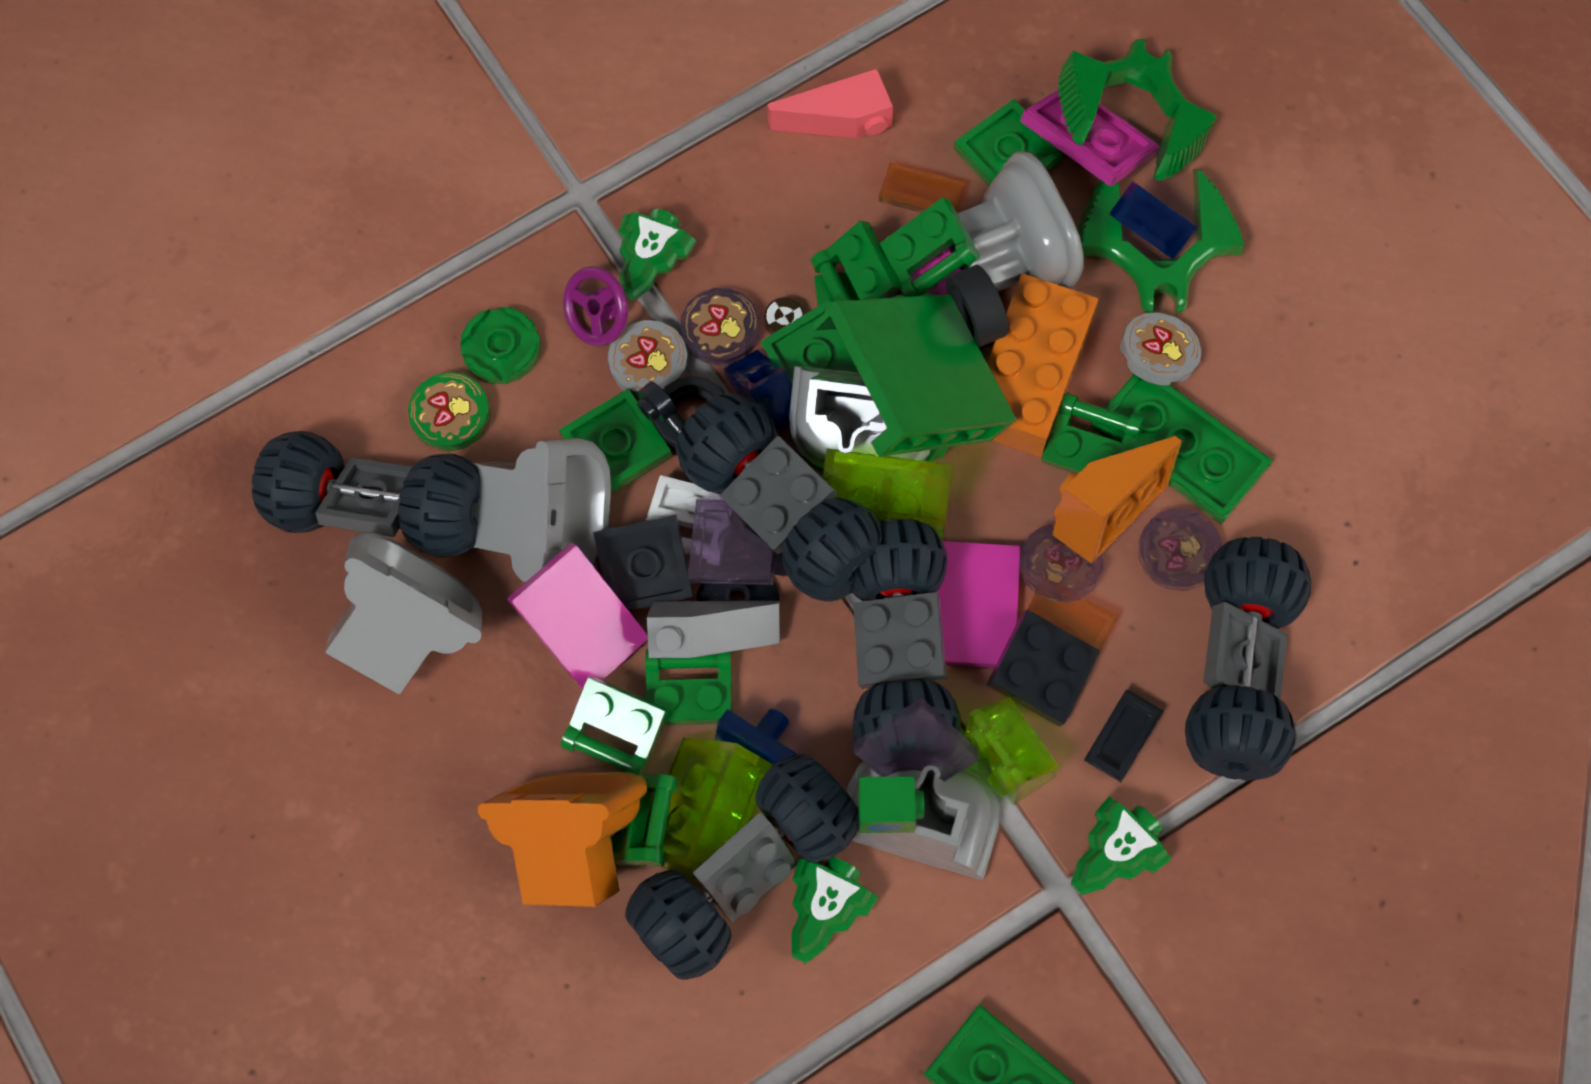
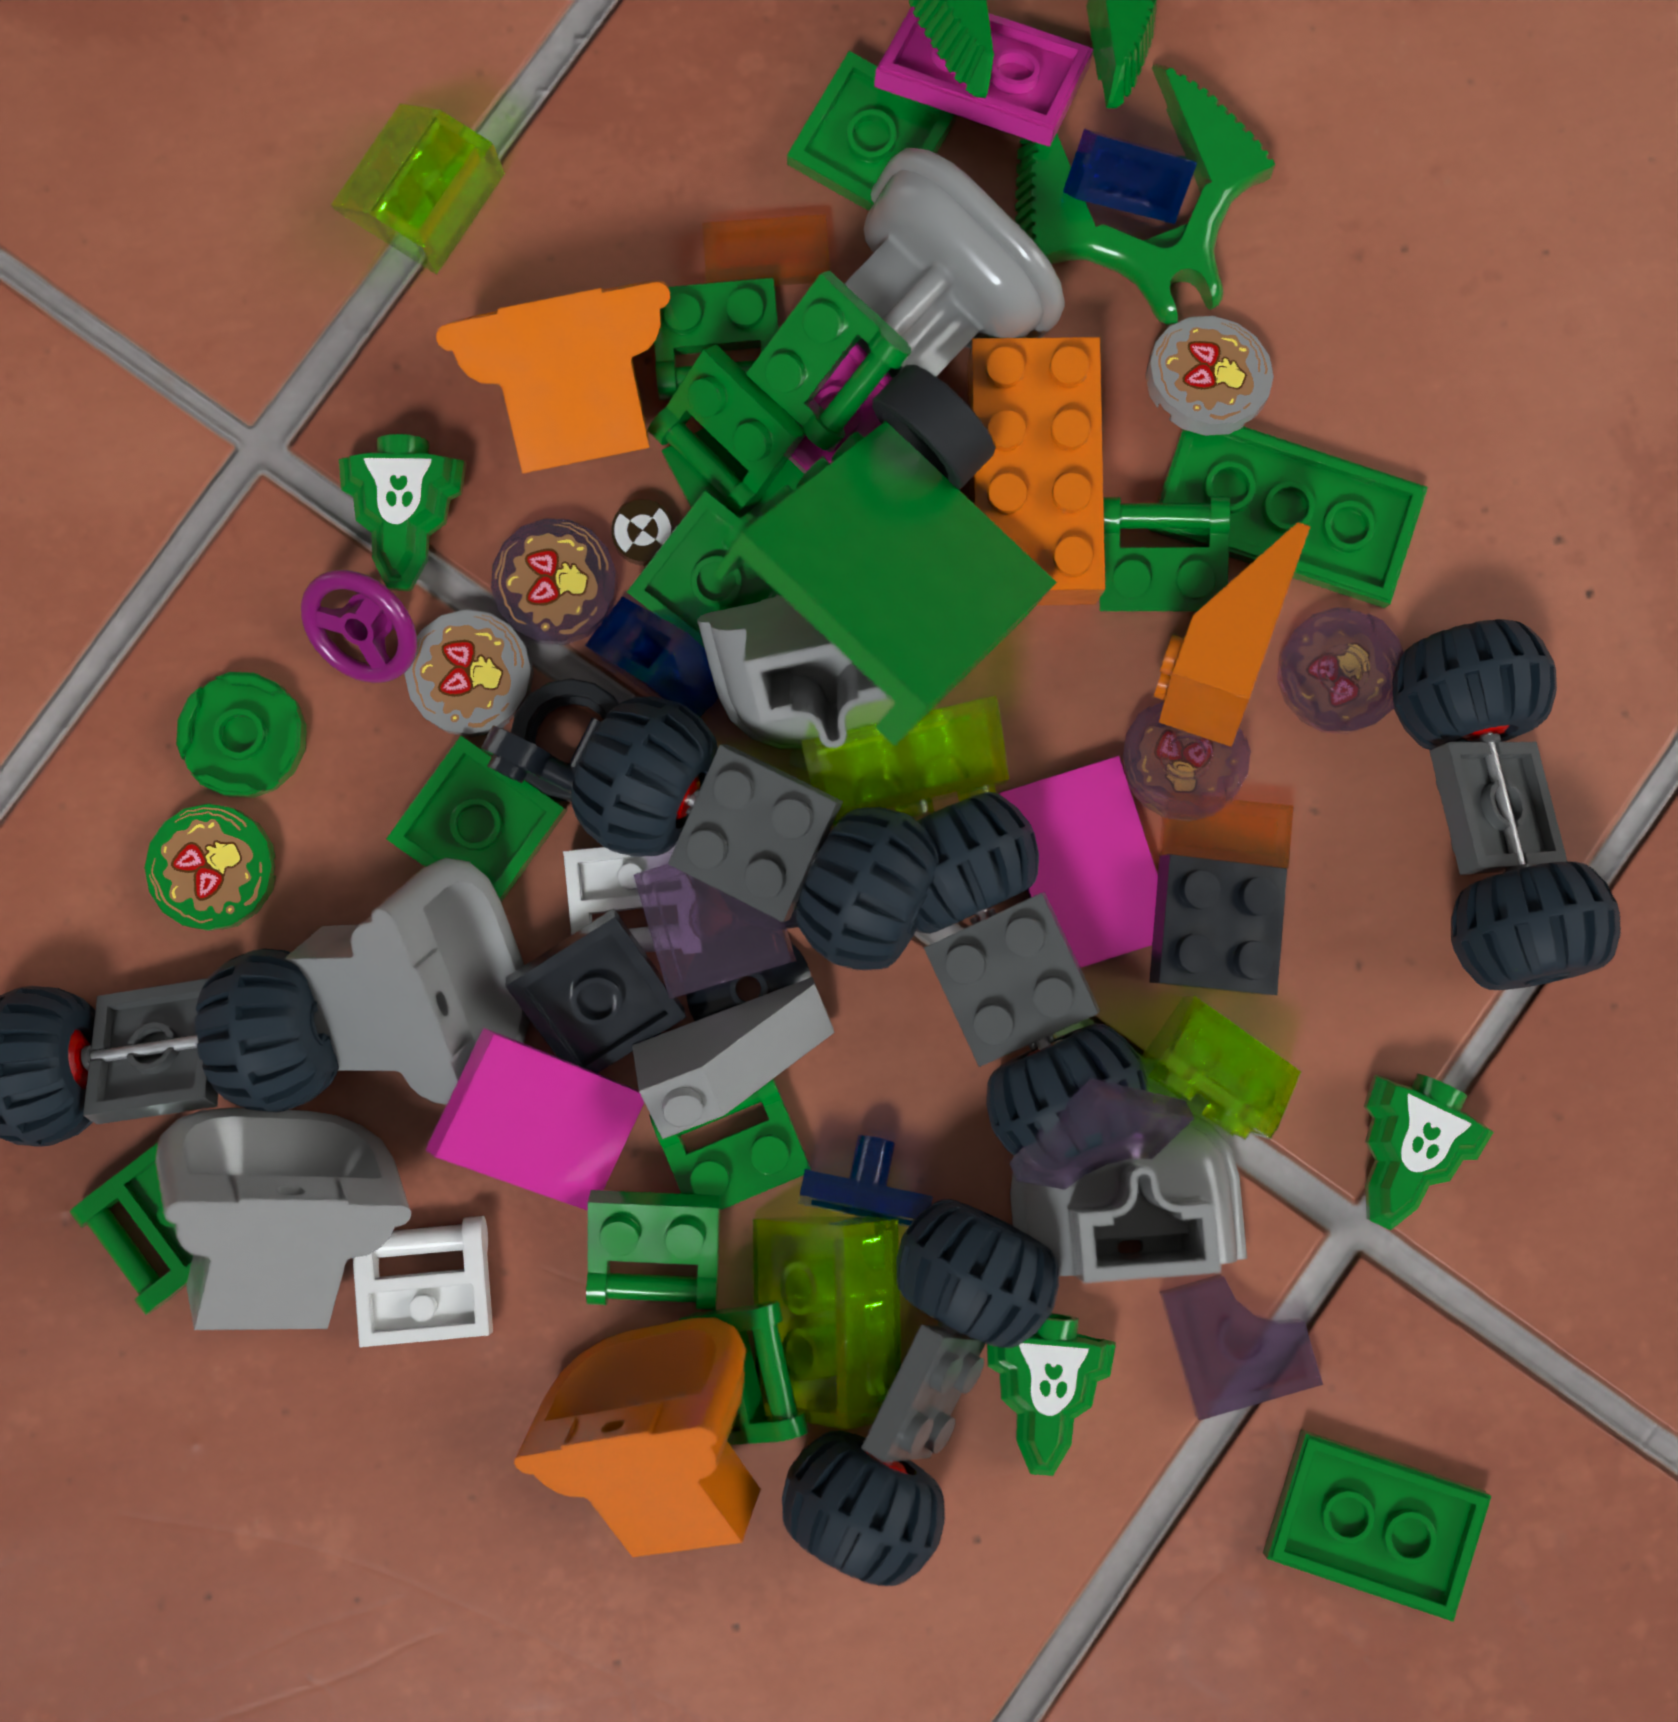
camera: 25 degrees left, 15 degrees up
(328, 583) = (140, 1194): none -> green plate
(464, 707) = (428, 1303): none -> white plate
(736, 85) = (421, 184): none -> clear neon green slope
(777, 204) = (565, 369): none -> orange piece
(838, 109) = (592, 166): coral slope -> none
(883, 214) = (708, 314): none -> green plate
(889, 804) = (1110, 1262): green brick -> none
(951, 936) = (1232, 1354): none -> clear purple tile
(1123, 735) = (1362, 978): black tile -> none

